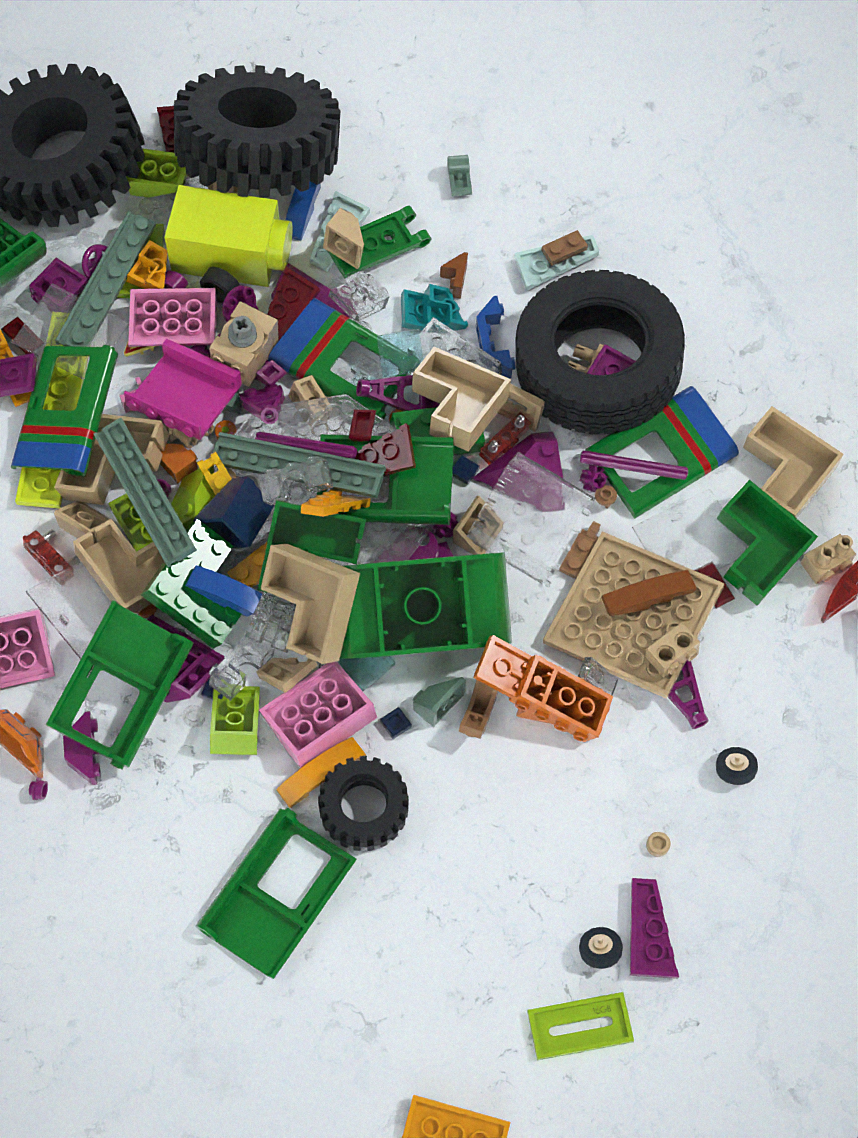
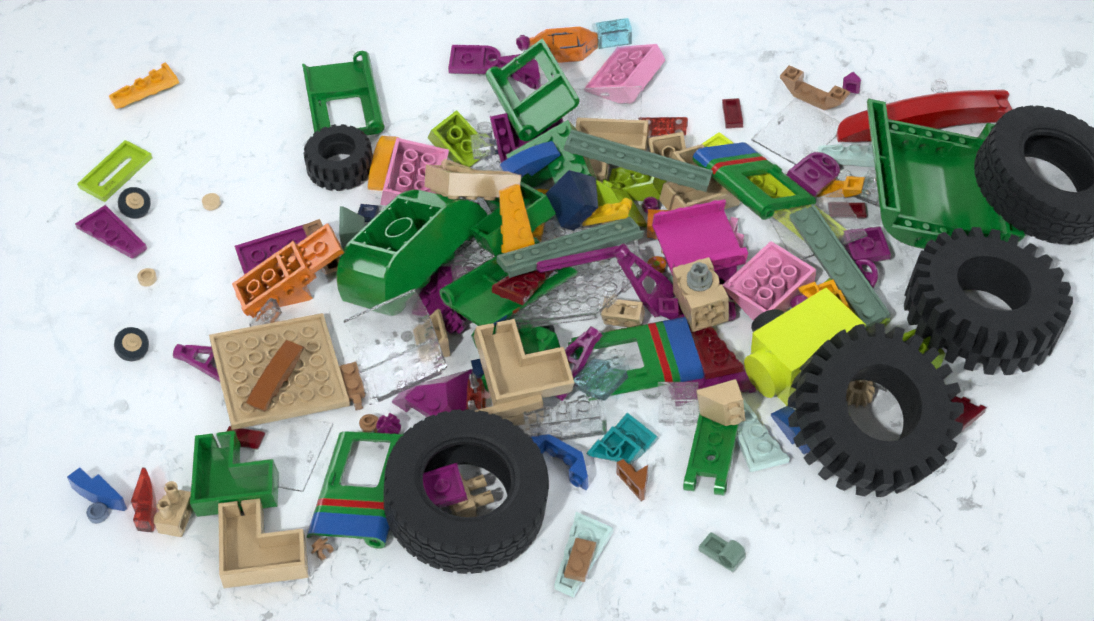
camera: 140 degrees right, 15 degrees down
(107, 817) = (472, 59): none -> magenta plate
(238, 294) = (742, 326): magenta dish -> none
(276, 483) = (563, 223): clear arch -> none
(362, 425) = (557, 292): dark red tile -> none
(522, 882) = (211, 201): none -> tan tile
(530, 765) = (258, 250): none -> magenta wing
(634, 465) = (365, 447): magenta axle -> none
(669, 647) = (225, 353): tan brick -> none
(738, 429) = (319, 545): none -> medium nougat plate

